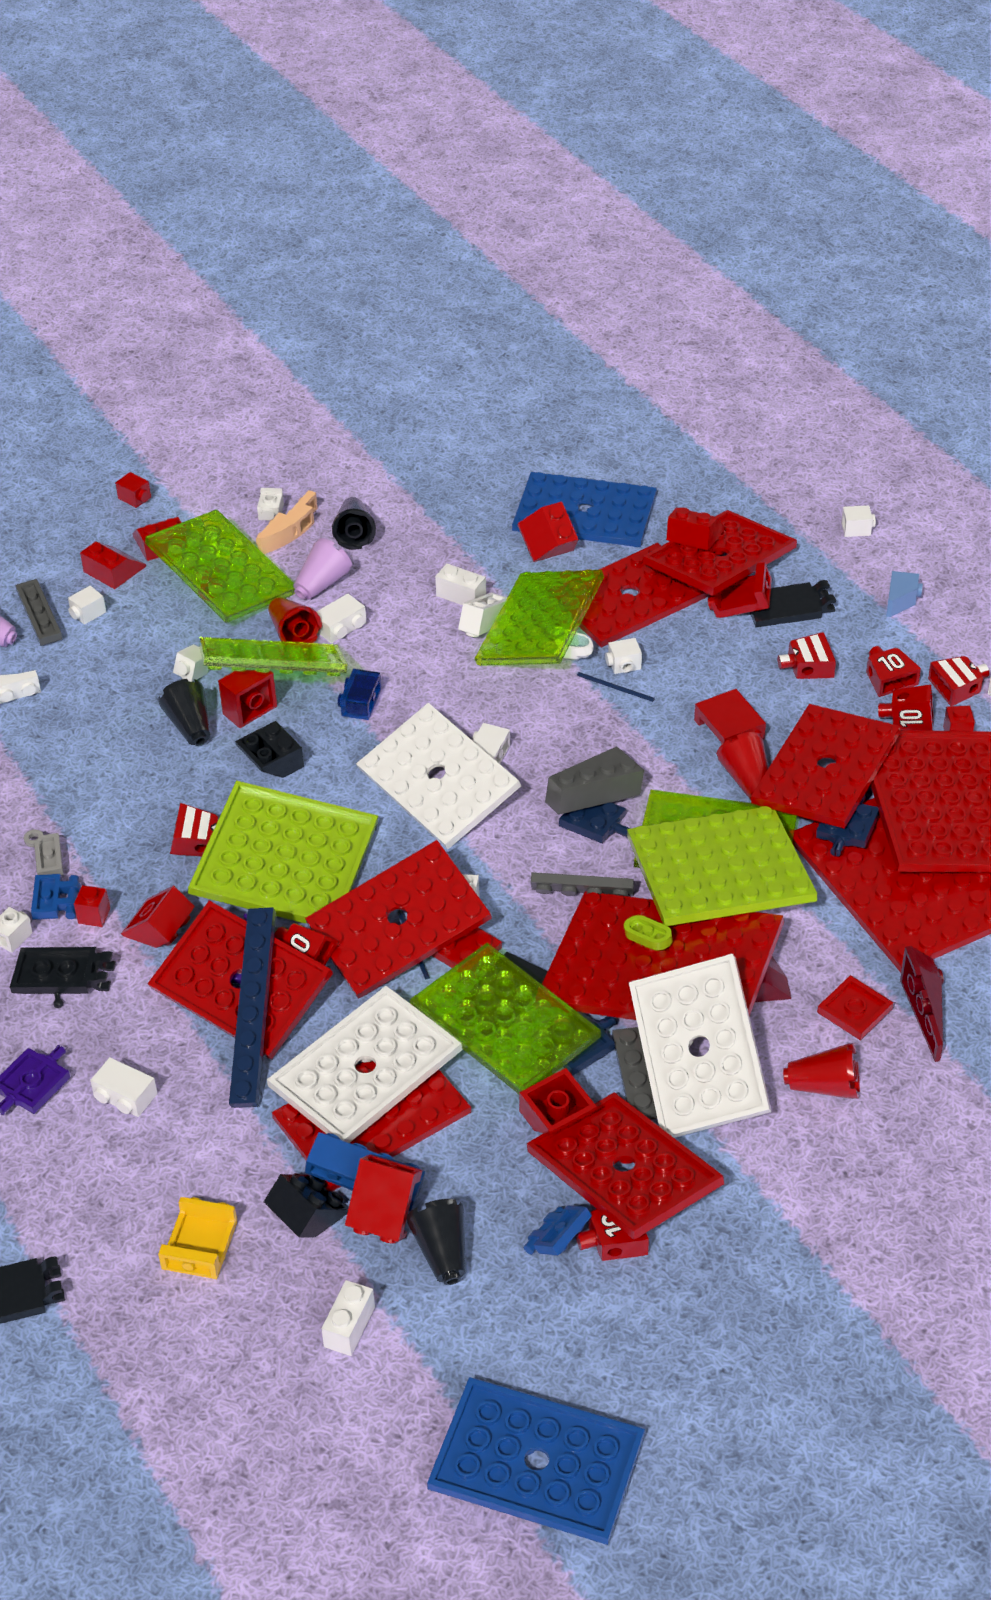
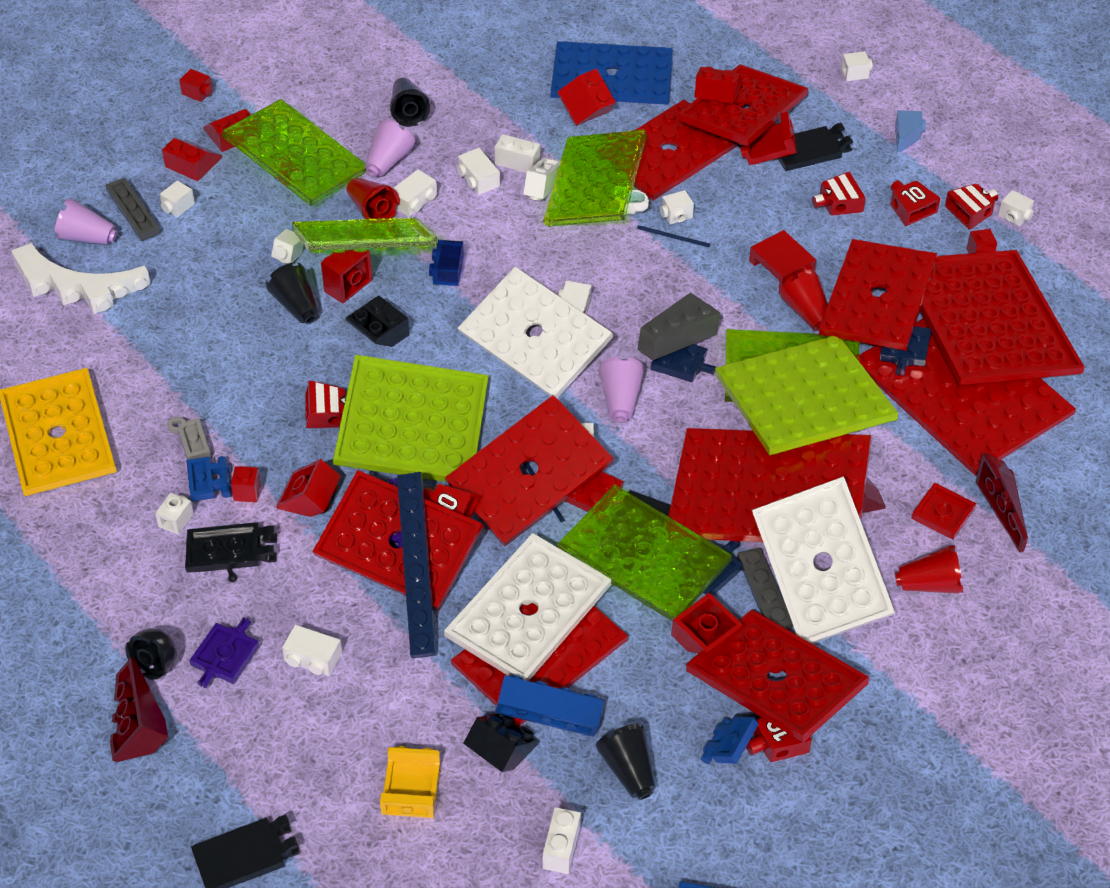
camera: 10 degrees left, 5 degrees up
(270, 503) = (326, 89): white brick -> none
(288, 527) = (347, 109): light nougat slope -> none
(381, 1198) = (571, 729): red panel -> none
(414, 601) = (478, 171): none -> white brick
(519, 839) = (621, 385): none -> lavender cone
(574, 884) = (675, 423): dark grey plate -> none
(648, 932) = (756, 462): lime plate -> none
(910, 708) = (938, 235): red torso -> none

